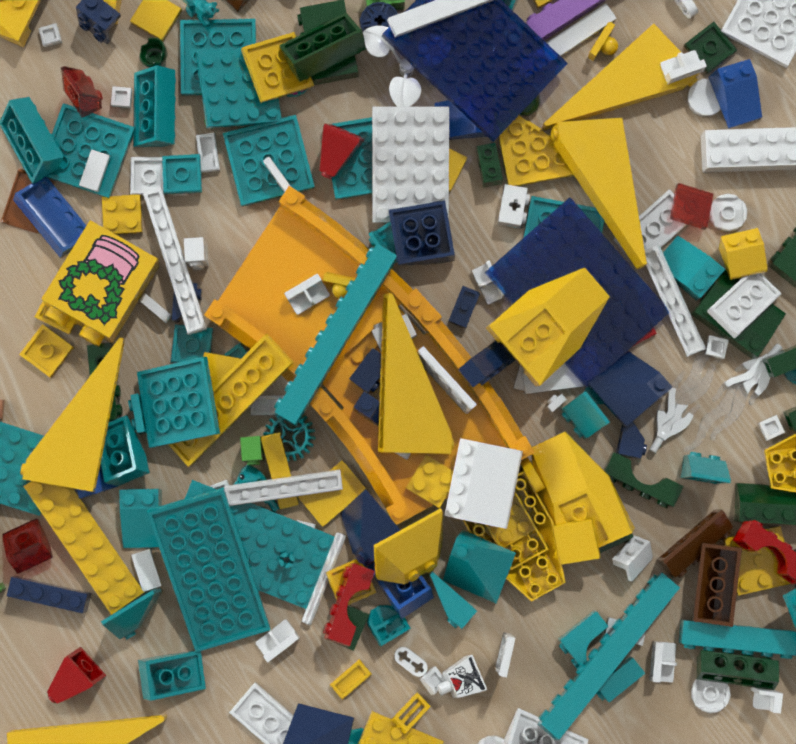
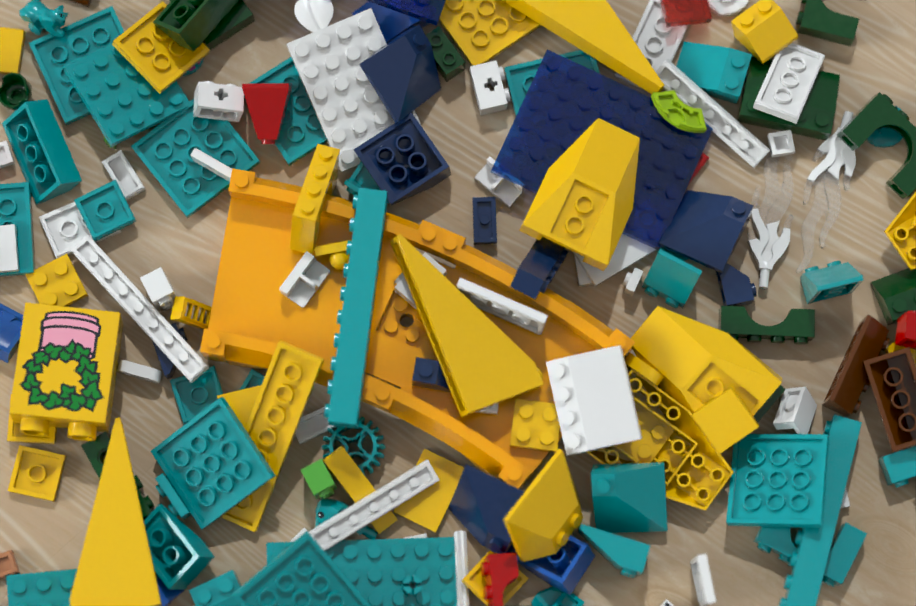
camera: 20 degrees left, 5 degrees down
(204, 274) = (179, 310): none -> yellow slope
(293, 128) = (218, 101): none -> white brick
(351, 223) = (319, 181): none -> yellow arch
(368, 372) = (411, 335): dark blue brick -> none
(452, 167) = (403, 72): none -> dark blue slope
(596, 604) = (778, 480): none -> teal plate
(647, 289) = (678, 113): none -> lime tile
(662, 662) = (880, 514): white panel -> none
(771, 427) = (880, 205): white plate -> none

